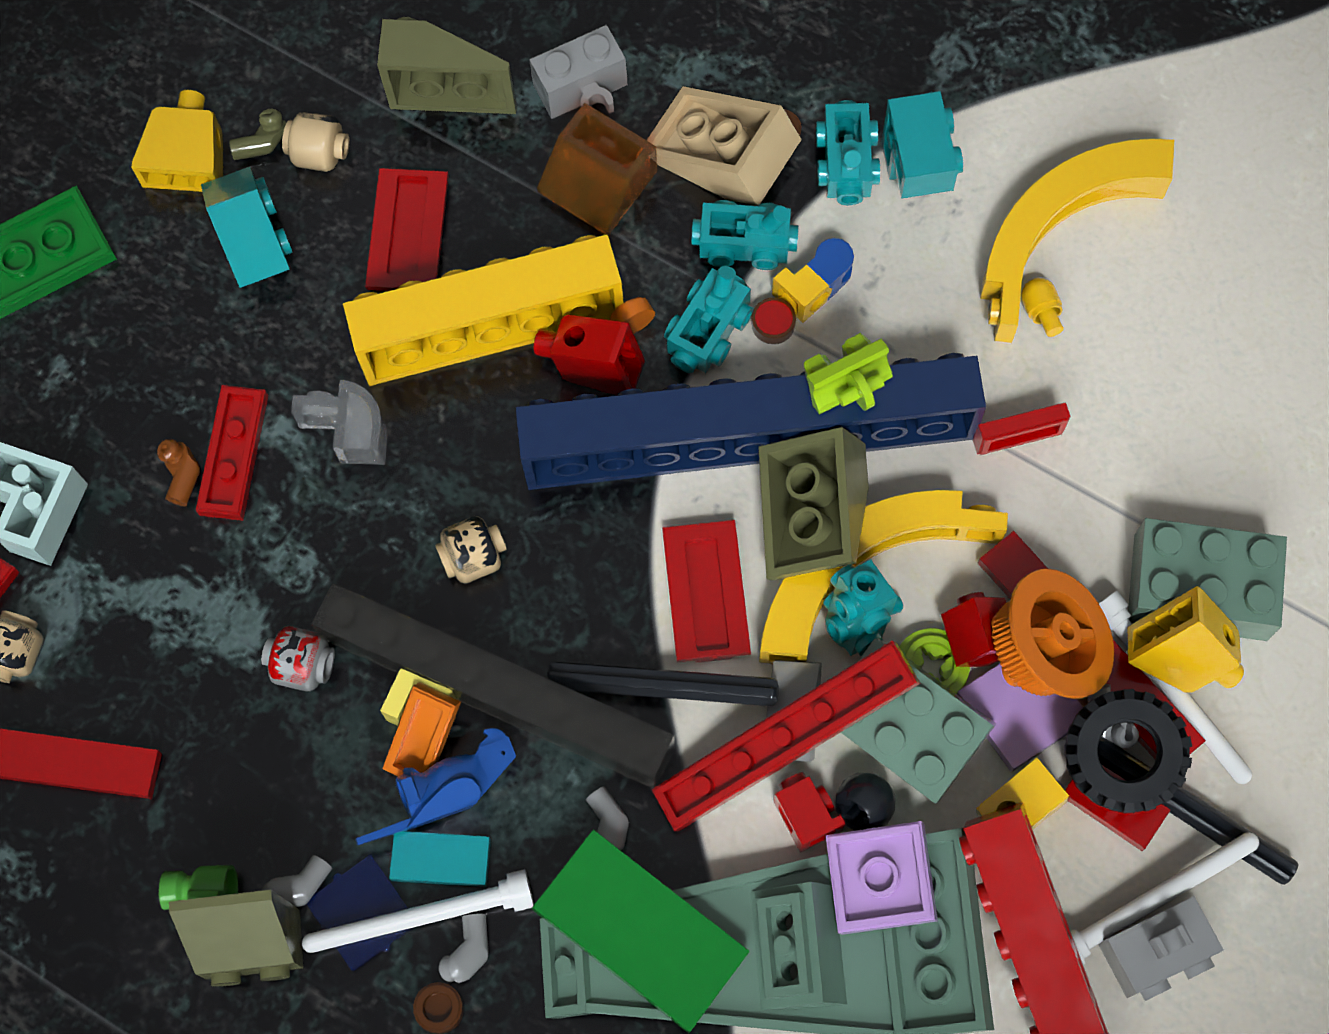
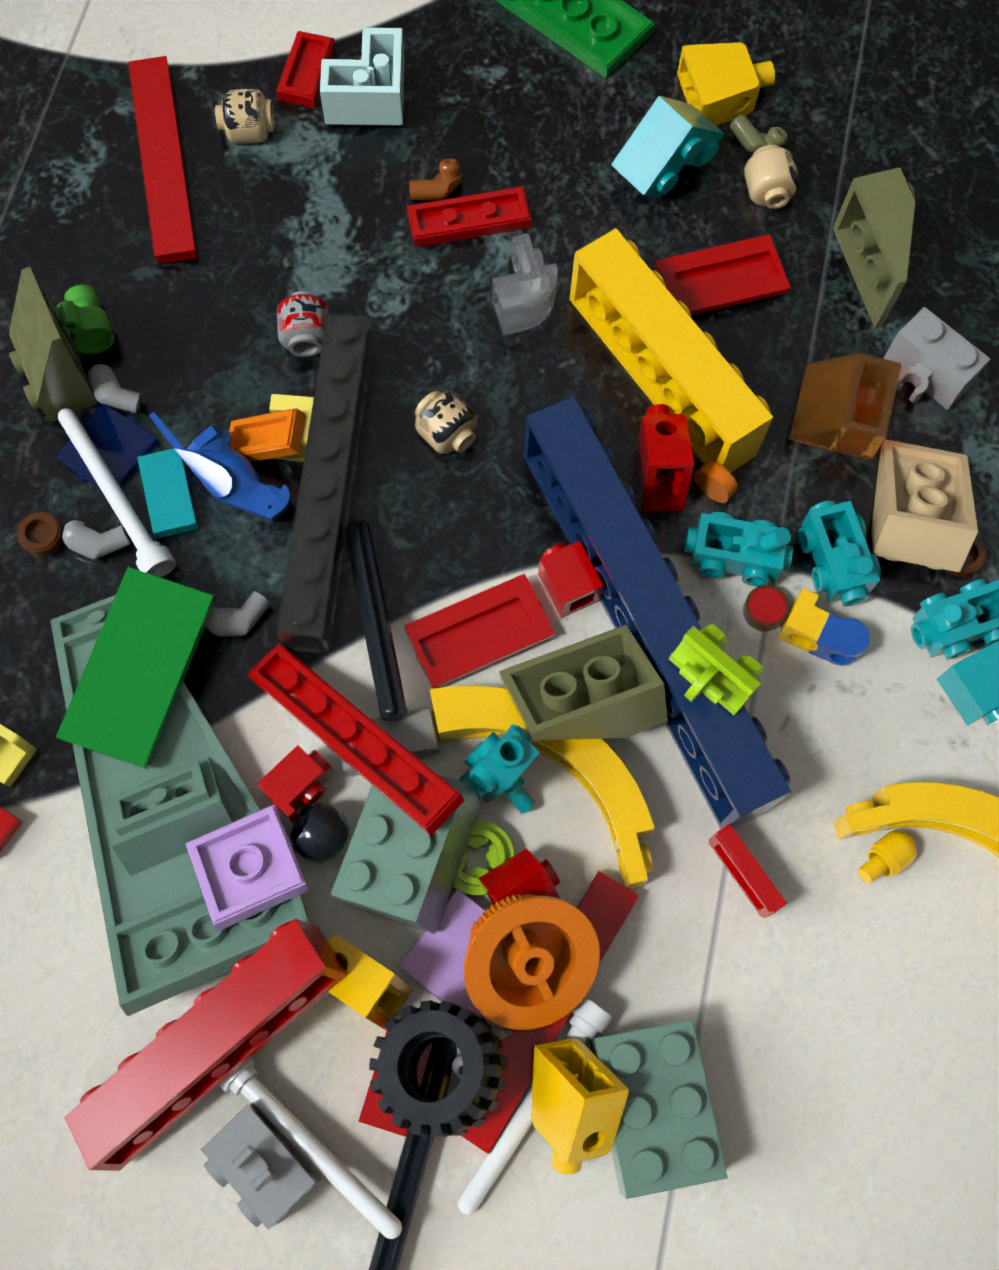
camera: 65 degrees right, 0 degrees up
(683, 486) = (569, 578): none -> red brick

